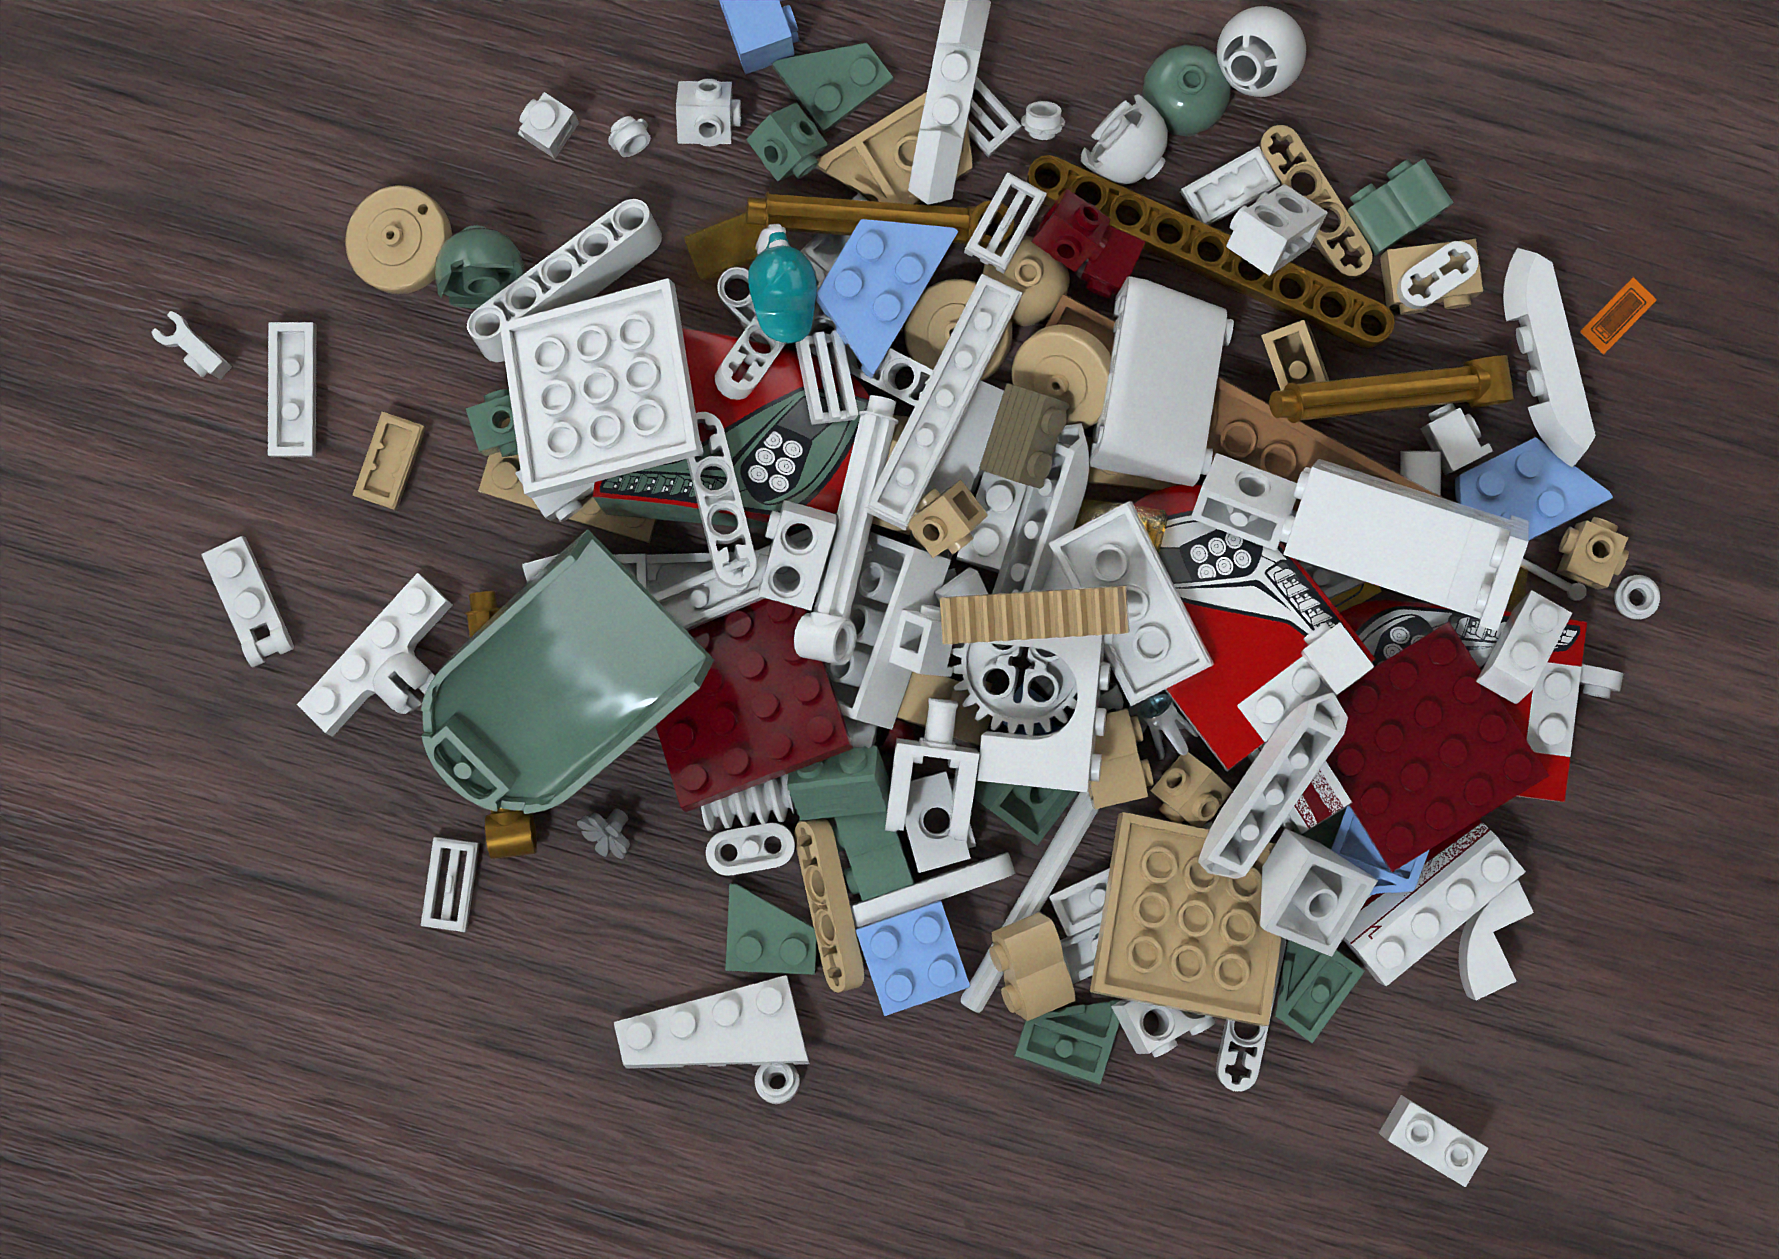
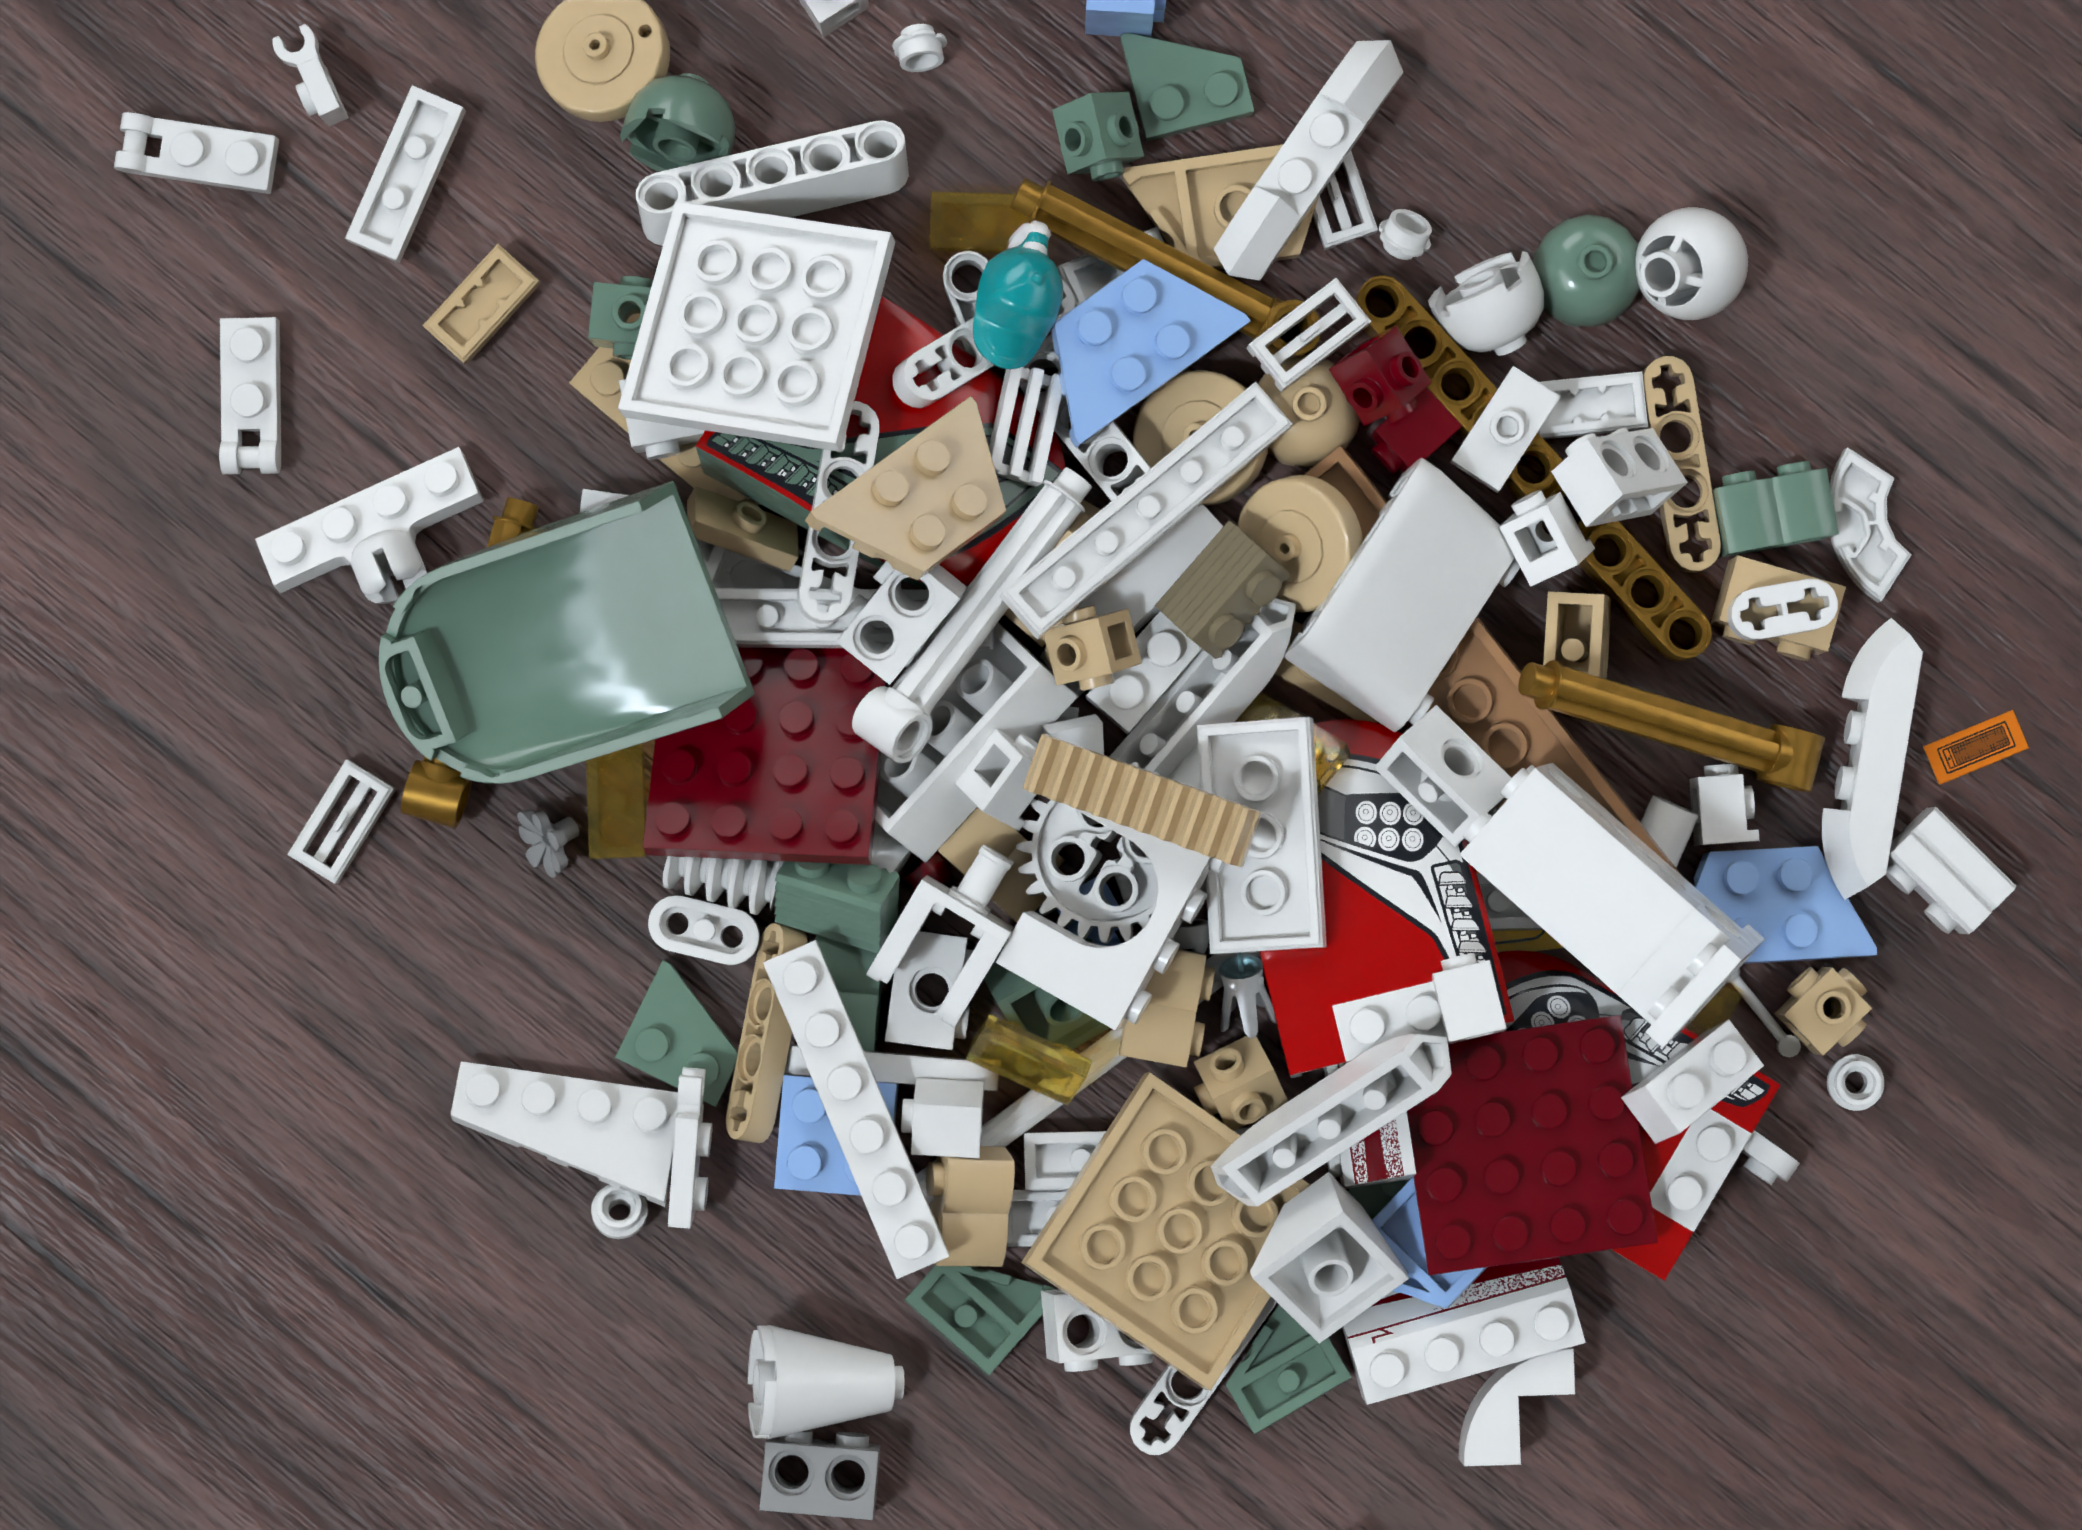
camera: 25 degrees right, 0 degrees up
(133, 440) = (198, 153): none -> white plate
(647, 785) = (616, 804): none -> clear yellow plate
(652, 542) = (743, 528): none -> tan plate
(706, 112) = (1020, 59): white brick -> none
(775, 462) = (921, 497): none -> tan wing
(808, 1008) = (691, 1141): none -> white plate
(920, 932) = (856, 1109): none -> white plate
(975, 1144) = (815, 1382): none -> white cone
(987, 910) = (945, 1118): none -> white brick
(1012, 1223) = (820, 1491): none -> light grey brick
(1030, 840) = (1029, 1059): none -> clear yellow plate
(1178, 230) = (1505, 429): none -> white plate
(1240, 309) = (1535, 550): none -> white brick
(1475, 200) = (1865, 537): none -> white tile
(1638, 415) = (1946, 873): none -> white brick

